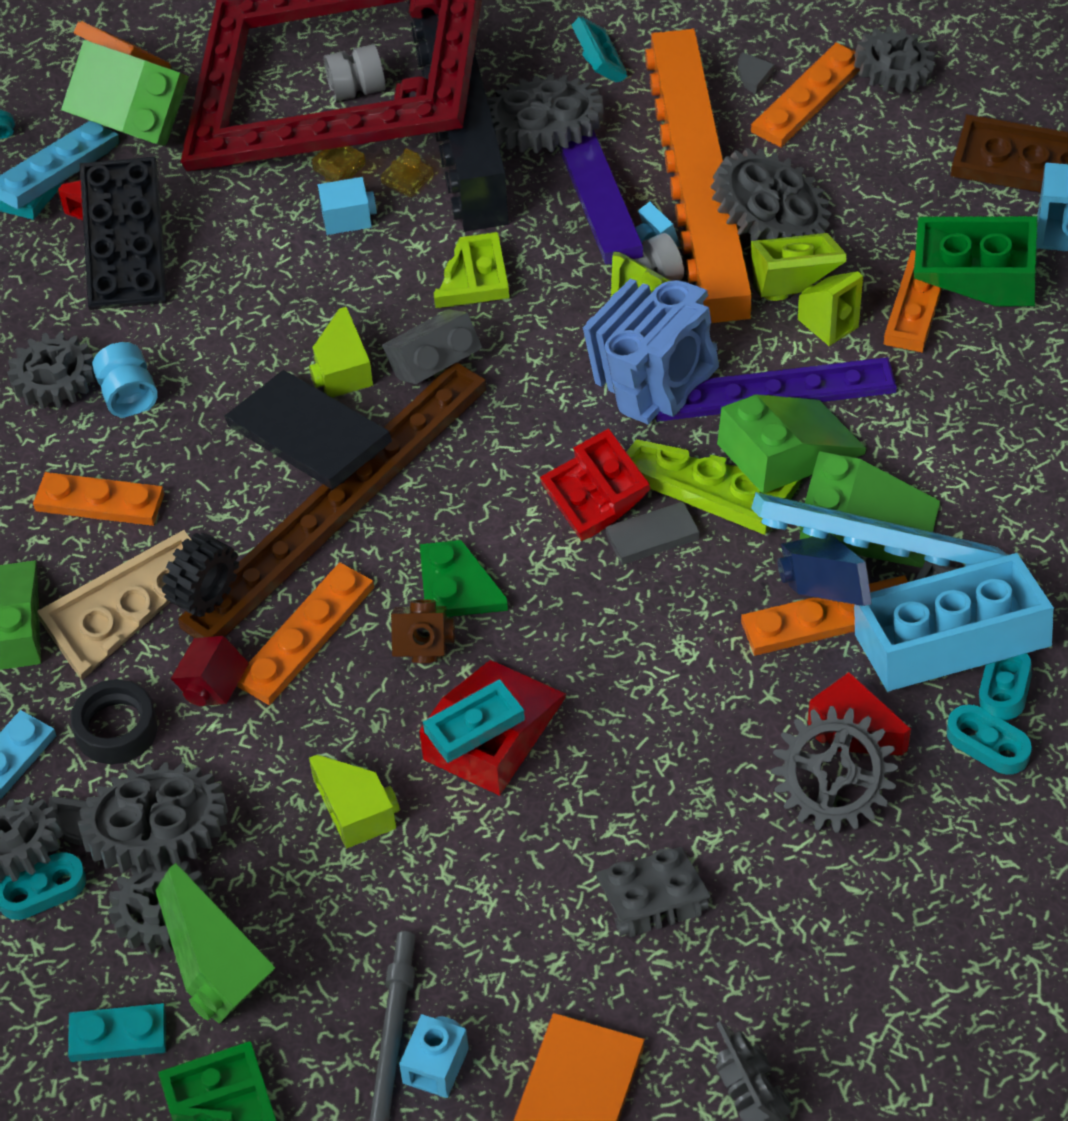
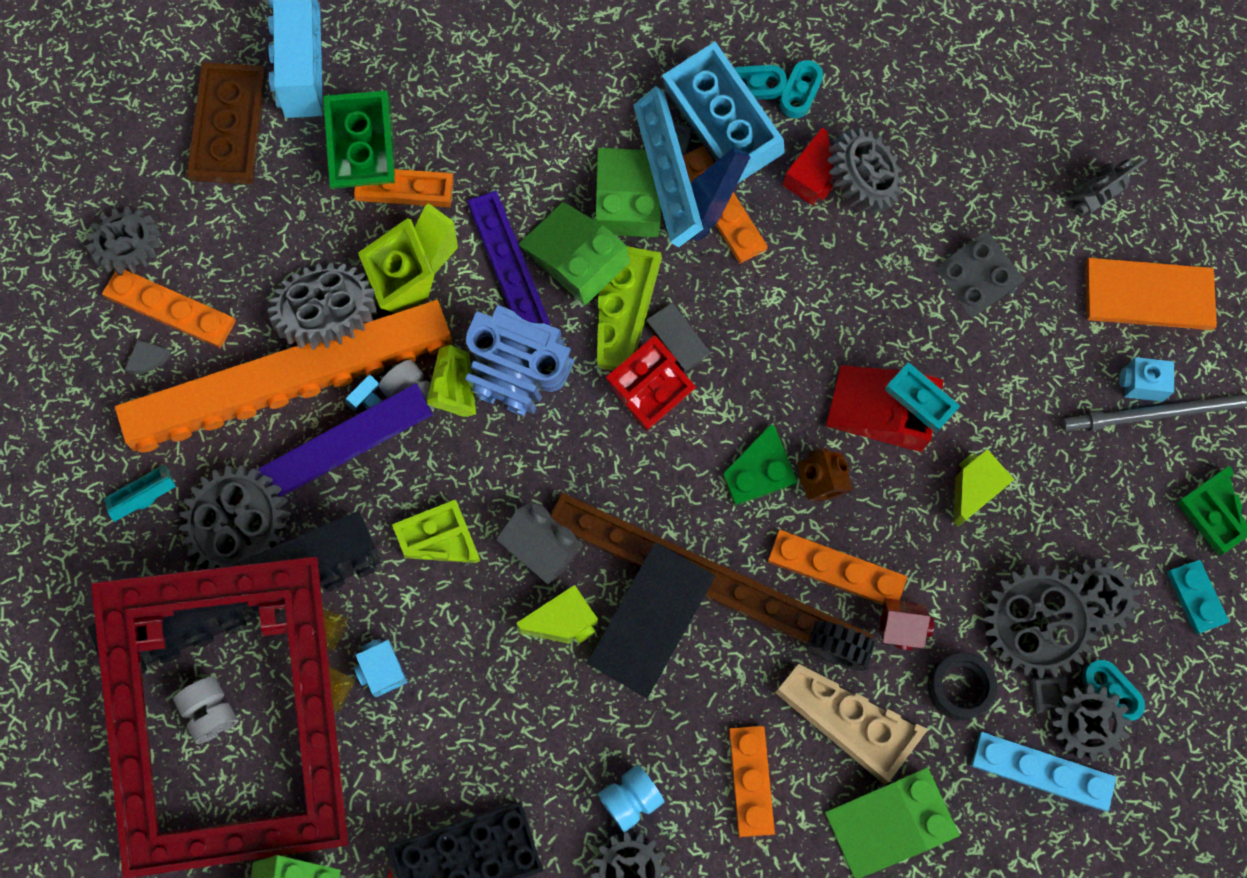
camera: 115 degrees left, 20 degrees up
(212, 954) = (1150, 529): bright green slope -> none

